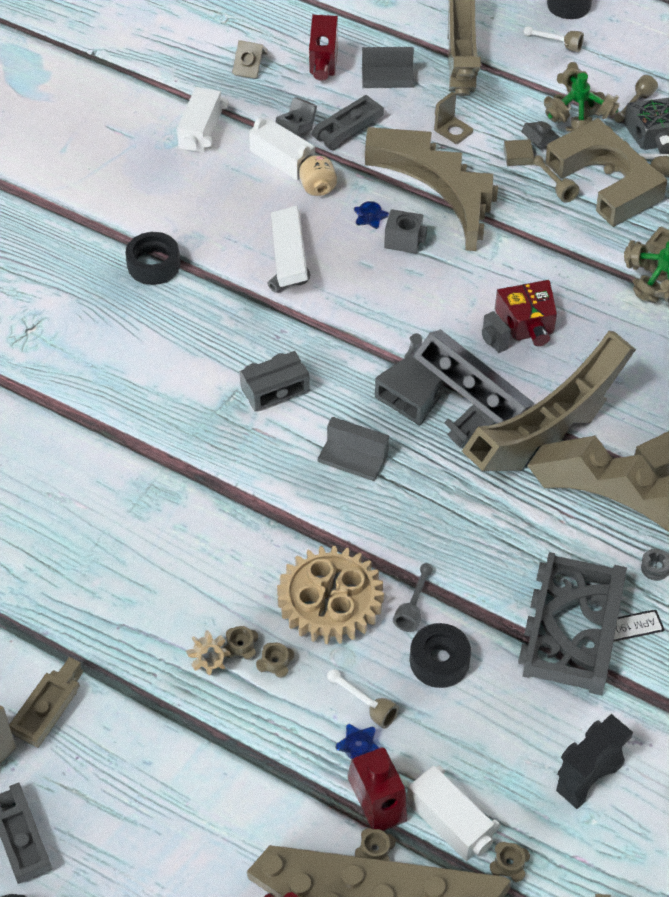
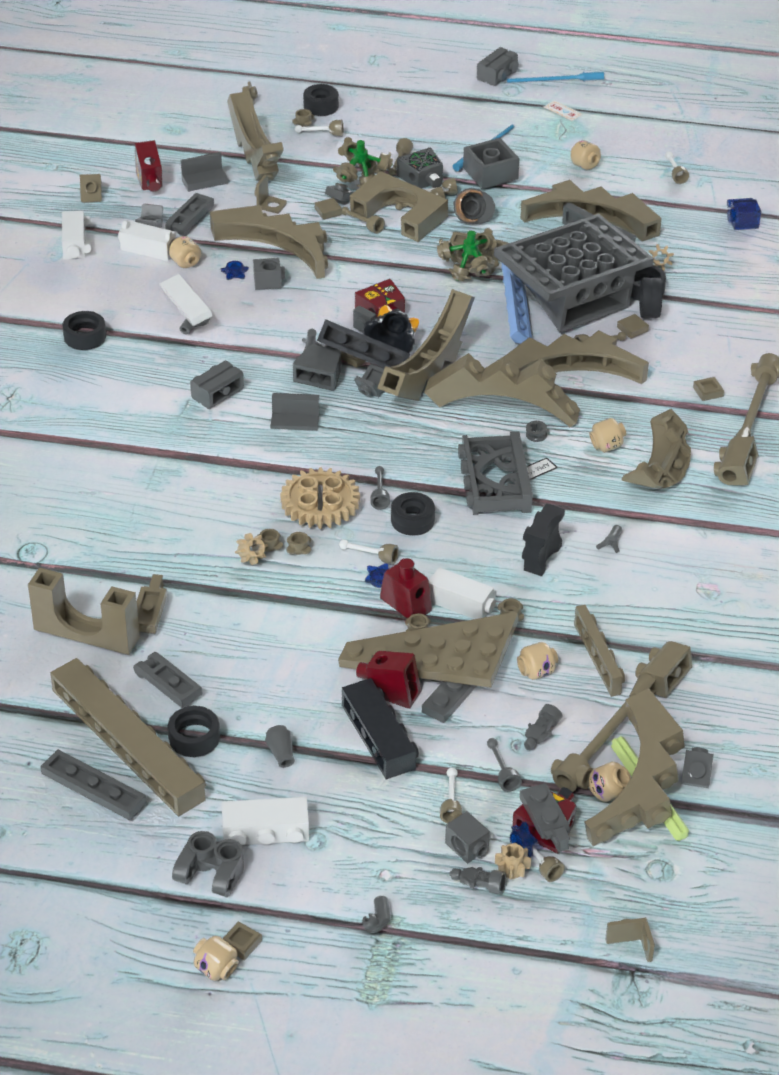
camera: 20 degrees left, 10 degrees down
(521, 359) = (392, 329): none -> black hair
(539, 17) = (303, 117): none -> dark tan plate

